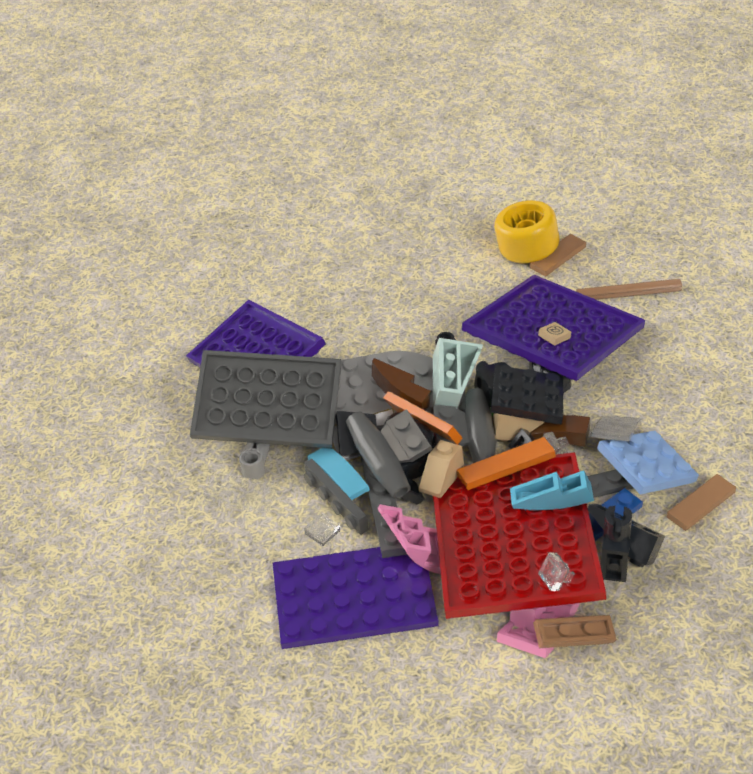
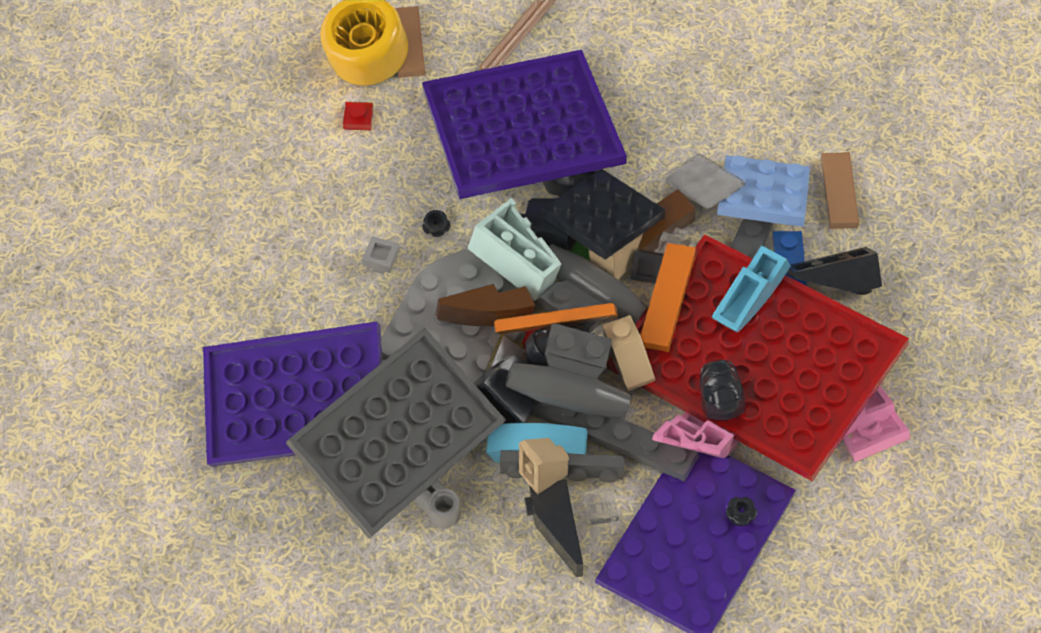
camera: 55 degrees left, 15 degrees up
(294, 514) = (556, 522): none -> black slope
(312, 472) = (542, 463): none -> tan slope
(386, 597) = (741, 518): none -> black plate
(394, 331) = (380, 255): none -> light grey tile
(461, 527) = (721, 391): none -> black piece
(481, 268) = (358, 116): none -> red plate
(554, 333) = (550, 131): tan tile -> none
(555, 572) = (858, 358): clear tile -> none
(574, 631) = (907, 395): medium nougat tile -> none
(616, 546) = (857, 283): black plate -> none

